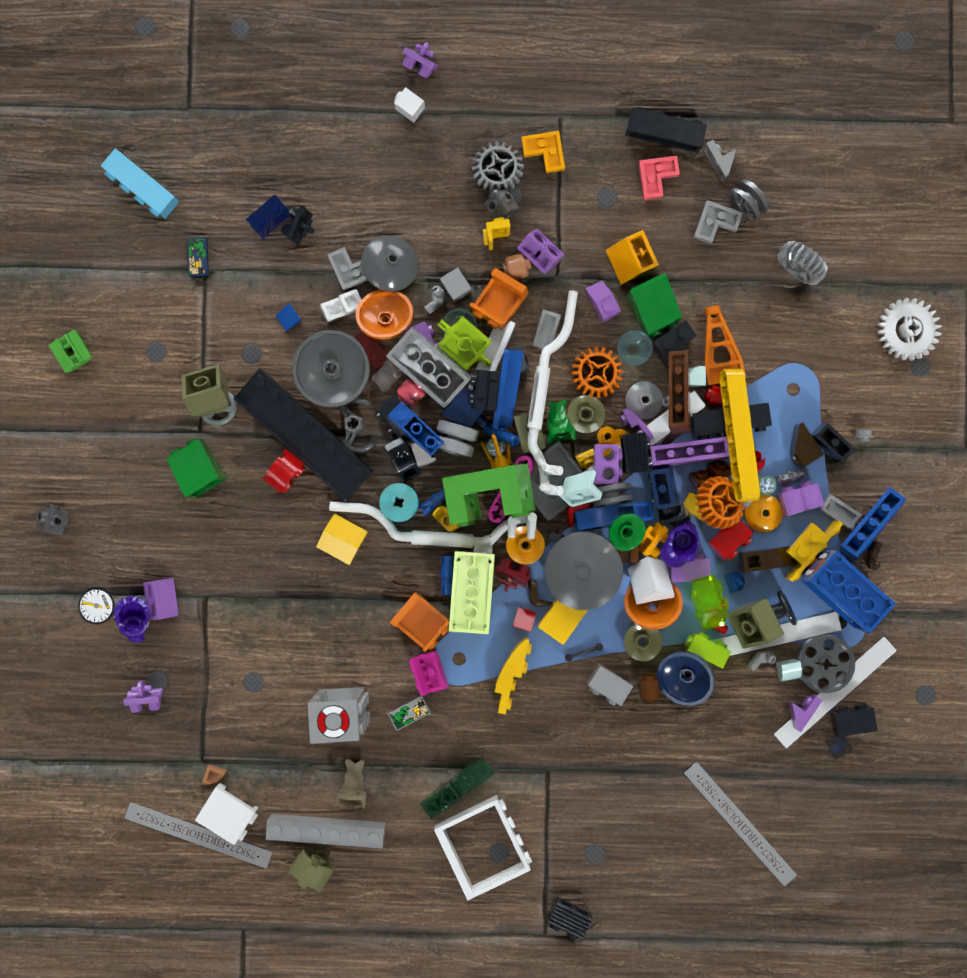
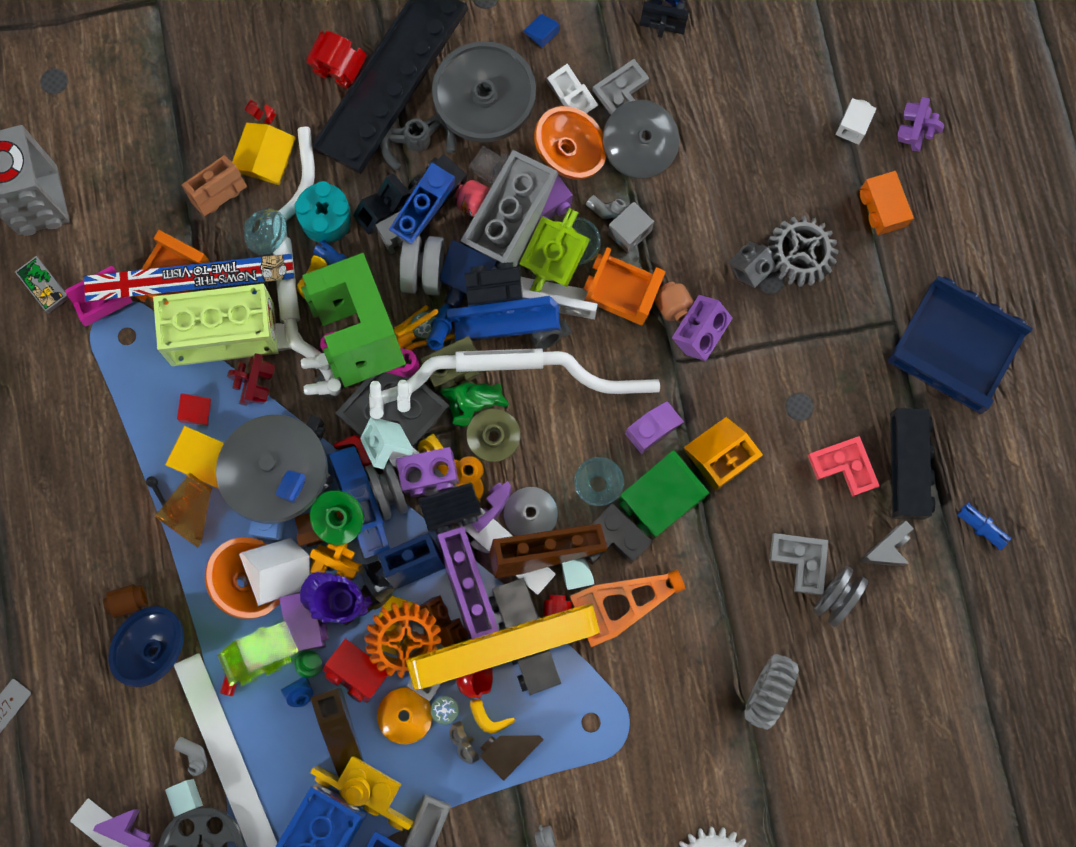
camera: 75 degrees right, 10 degrees down
(309, 538) = (257, 113): none -> red piece
(363, 577) = (214, 185): none -> nougat brick
(375, 353) = (522, 140): clear red plate -> none
(406, 541) = (270, 233): none -> clear light blue piece
(429, 606) = (188, 277): none -> sticker
(475, 99) = (886, 203): none -> orange brick
(496, 229) = (716, 259): yellow bracket -> none
(512, 667) = (122, 405): yellow slope -> none
(527, 555) = (283, 389): light orange dish -> none
(532, 594) = (227, 414): dark brown hair -> none
(546, 329) = (600, 360): light grey tile -> none
(549, 146) = (848, 312): light orange plate -> none
(587, 74) = (959, 344): none -> dark blue panel
(592, 365) = (545, 431): orange gear -> none
(596, 635) = (187, 509): none -> clear orange wing
(604, 558) = (291, 486): none -> blue slope
(609, 684) = (120, 543): light grey brick -> none
(644, 651) = (176, 573): olive dish -> none
(712, 652) = (192, 671): lime brick -> none
(717, 91) = (984, 526): none -> blue pin
(719, 569) = (308, 663): none -> green plate
(759, 622) = (245, 736): olive piece -> none
(785, 455) = (484, 722): none -> yellow hair
(801, 498) = (434, 762): medium lavender brick -> none
(813, 552) = (356, 791): none -> yellow plate
(832, 443) = (522, 790): black brick -> none

